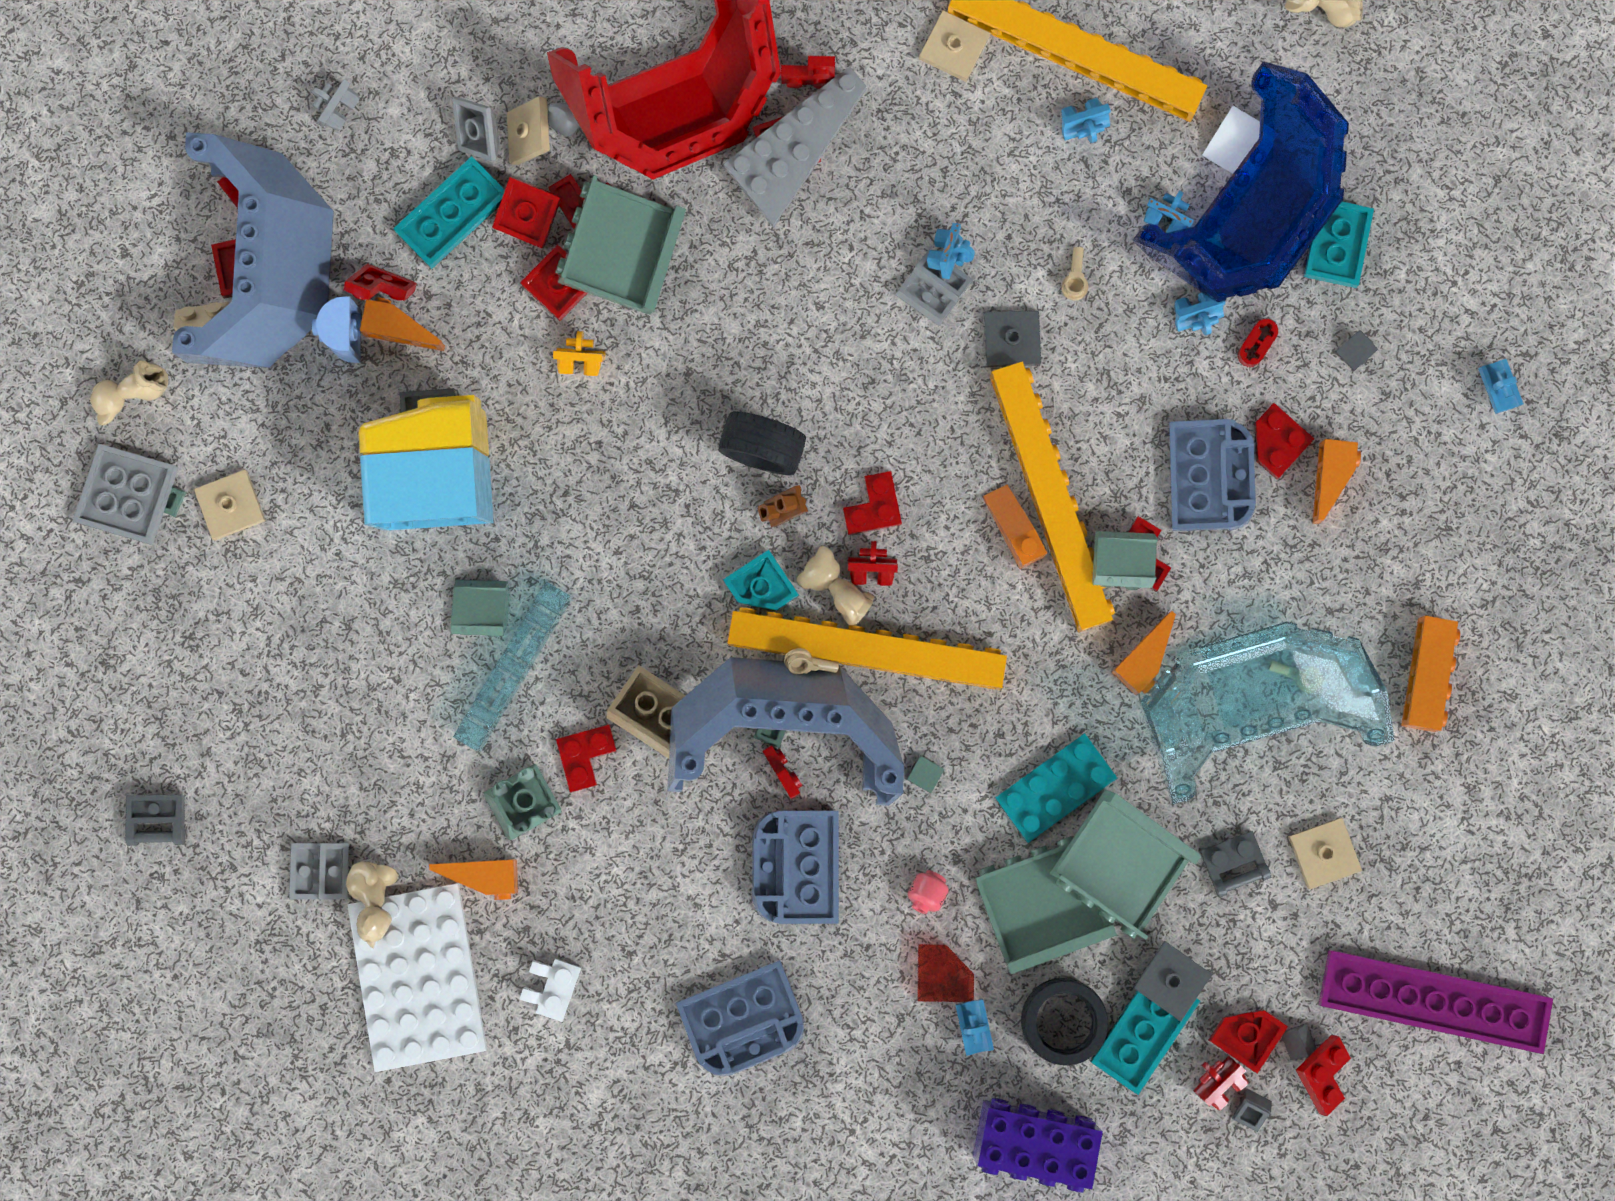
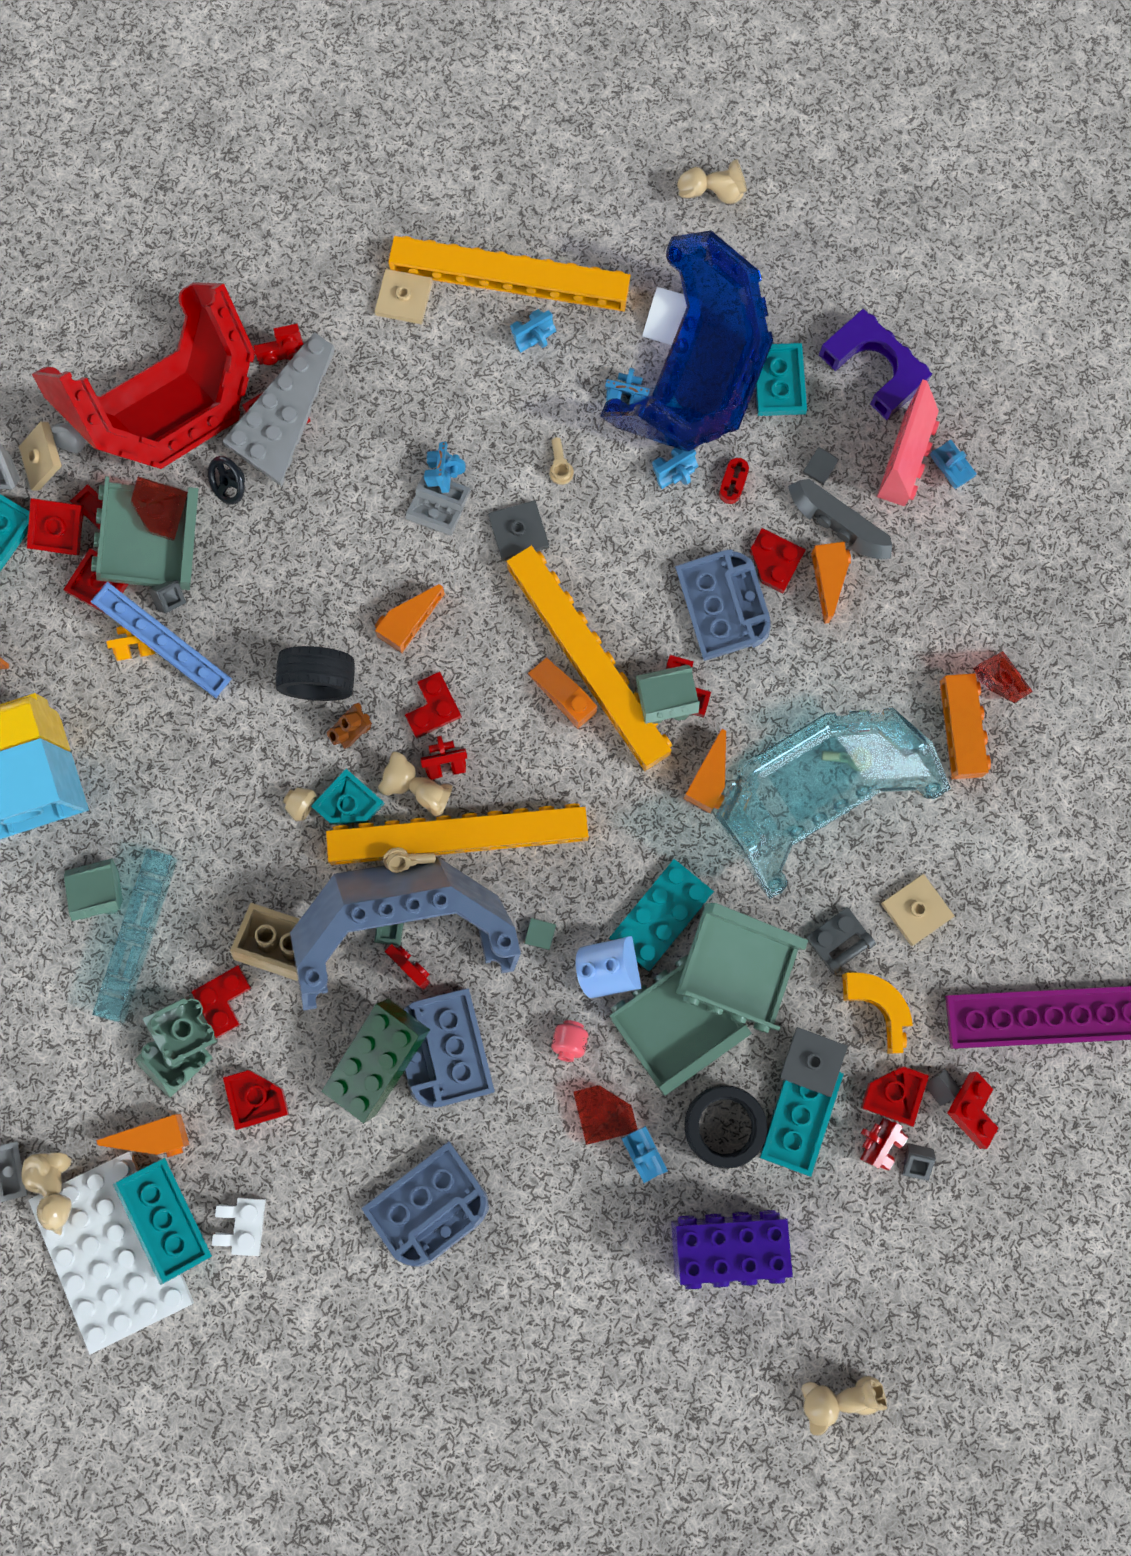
camera: 20 degrees left, 5 degrees down
(476, 961) = (162, 1221): none -> teal plate
(537, 775) = (180, 1029): none -> sand green slope
(593, 865) = (254, 1099): none -> red plate
(610, 365) = (161, 640): none -> medium blue tile
(626, 317) = (167, 596): none -> dark grey slope
(640, 219) = (158, 507): none -> clear red plate
(711, 573) = (299, 803): none -> tan cone
(720, 205) = (228, 478): none -> black piece
(727, 860) = (375, 1060): none -> dark green brick
(868, 407) = (405, 620): none -> orange slope
(986, 828) = (608, 968): none -> light blue brick
(1266, 937) = (887, 999): none -> light orange arch
(1368, 424) = (834, 514): none -> dark grey brick
(1447, 215) = (866, 334): none -> dark purple arch
(1458, 357) = (910, 448): none -> coral slope
(1486, 633) = (1002, 678): none -> clear red plate

